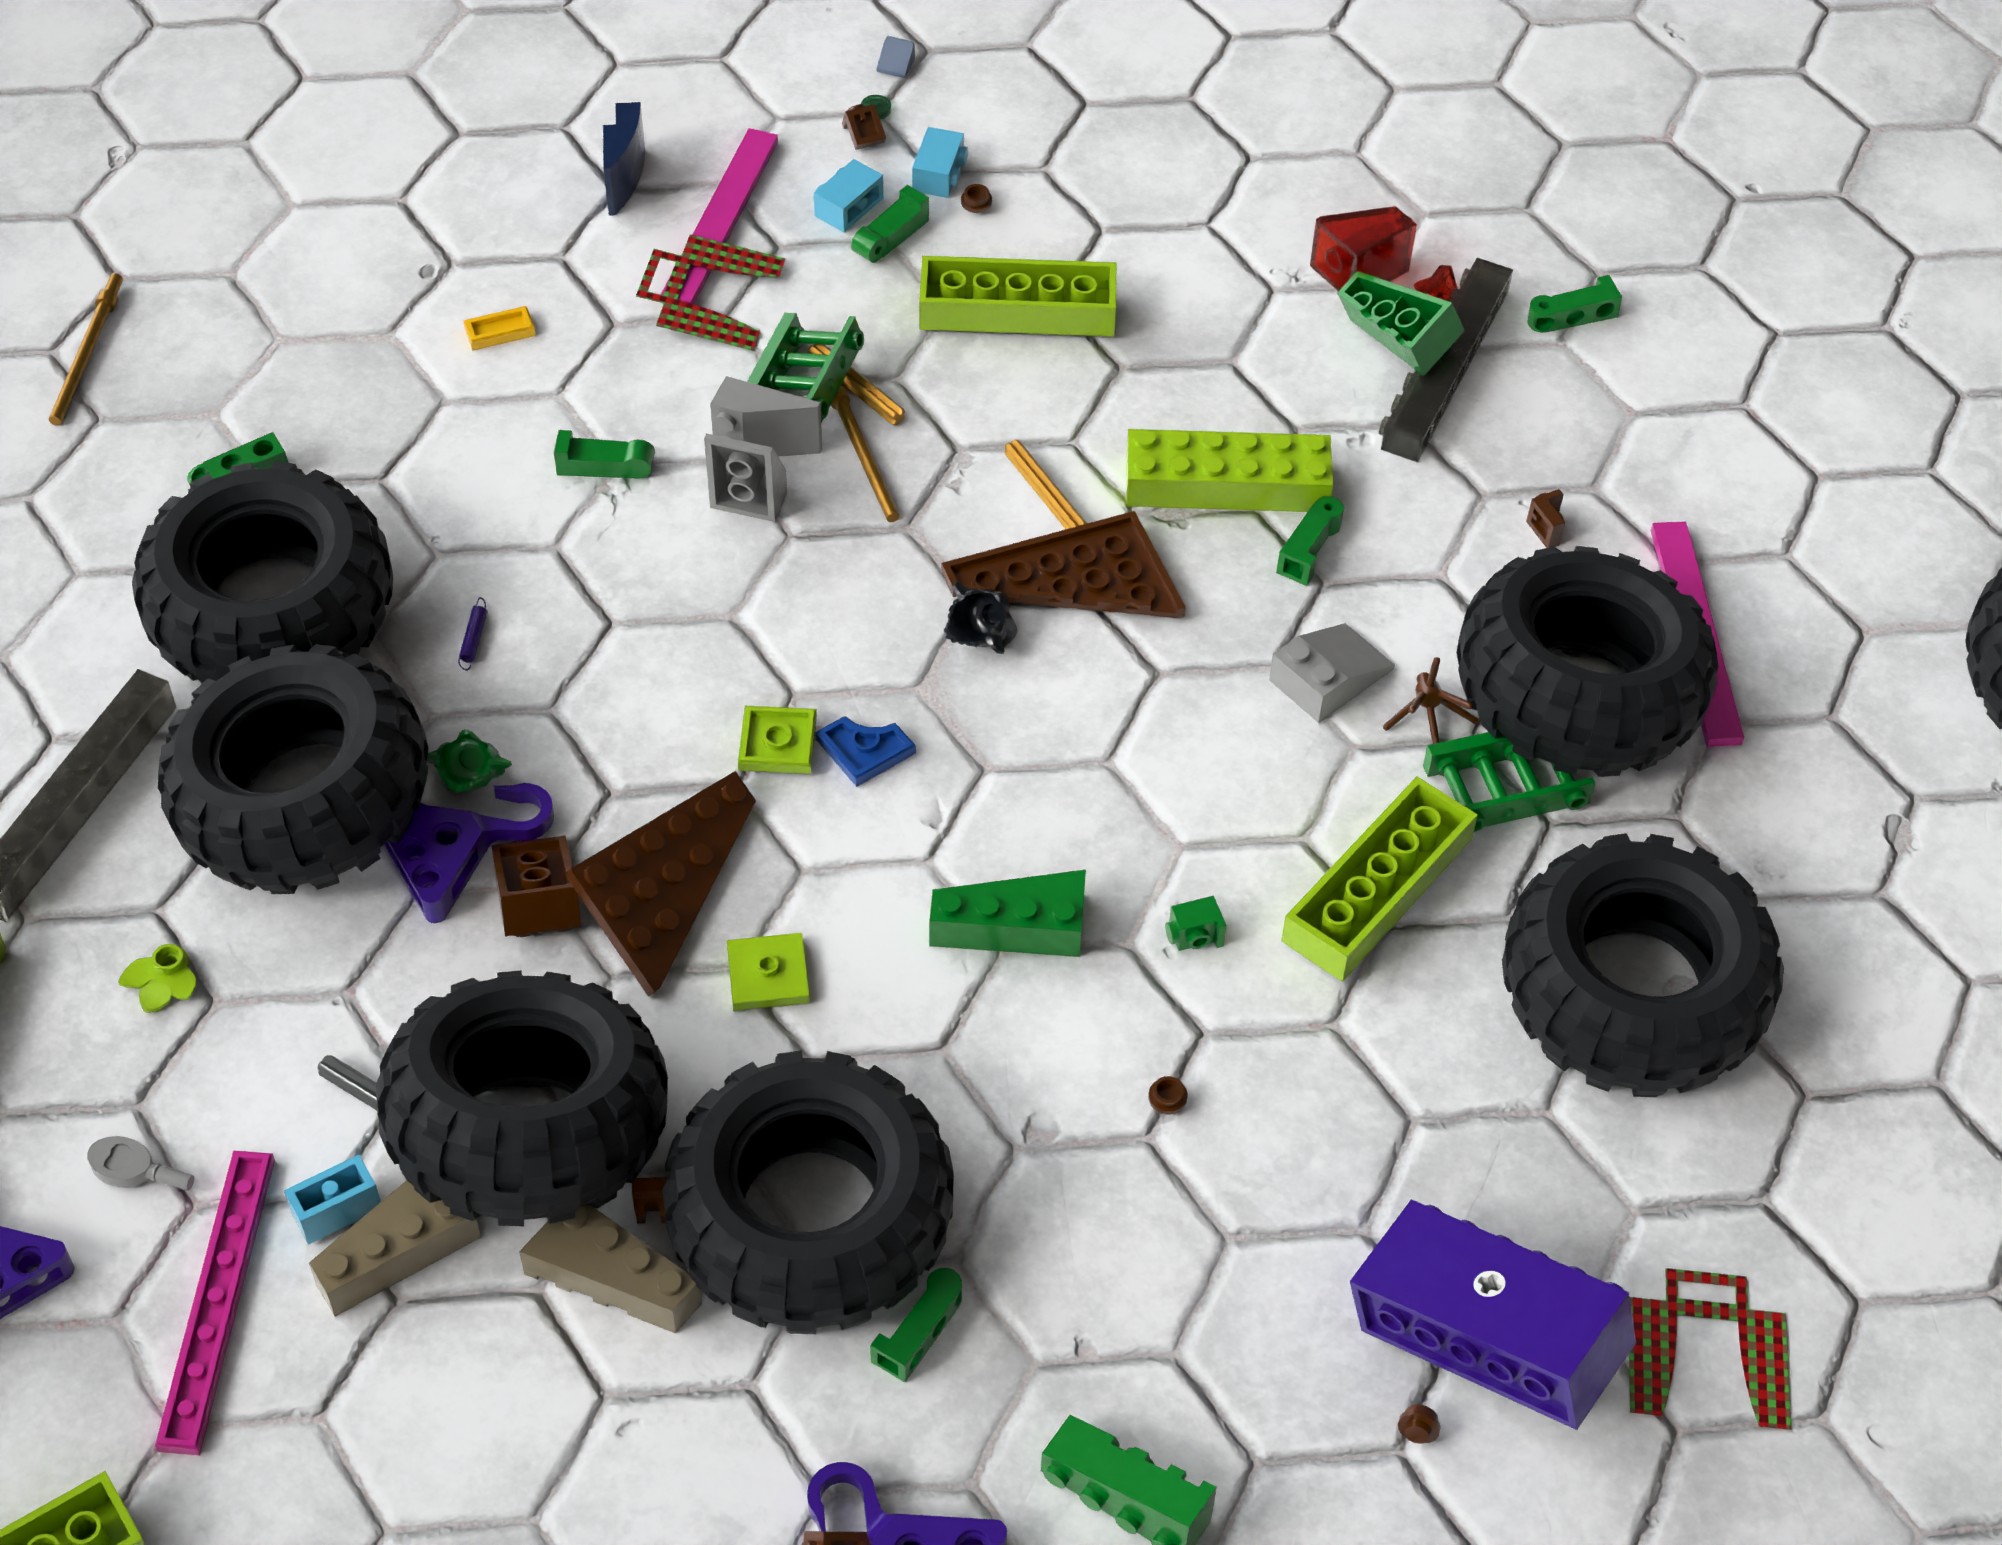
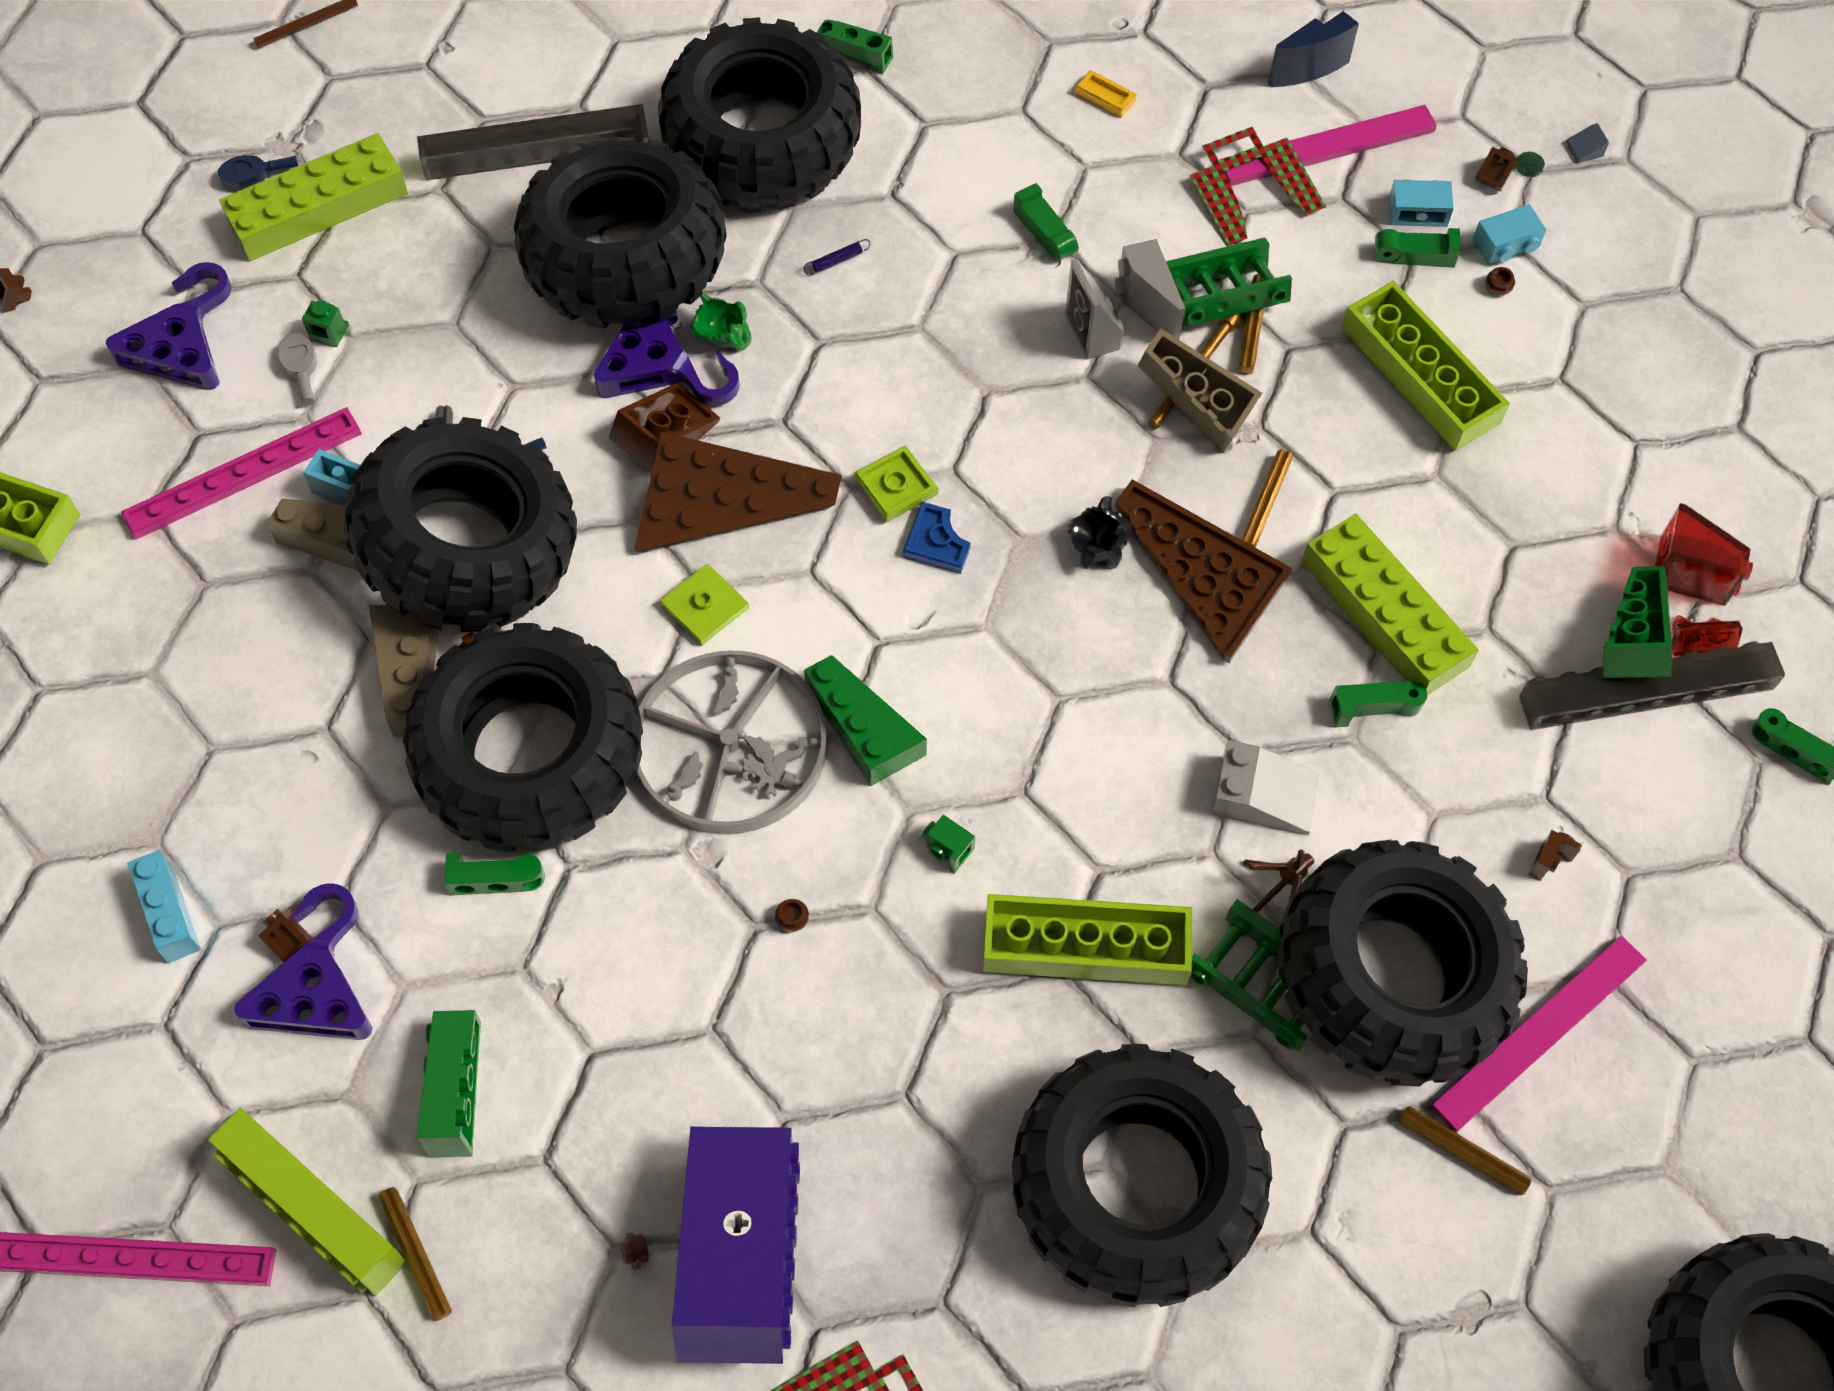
camera: 55 degrees right, 10 degrees up
(102, 1101) = (327, 316): none -> green brick
(160, 982) = (441, 282): lime plate -> none
(899, 453) = (1199, 387): none -> dark tan wedge
(997, 1021) = (769, 772): none -> light grey piece
(1762, 745) = (1465, 1150): none -> pearl gold axle

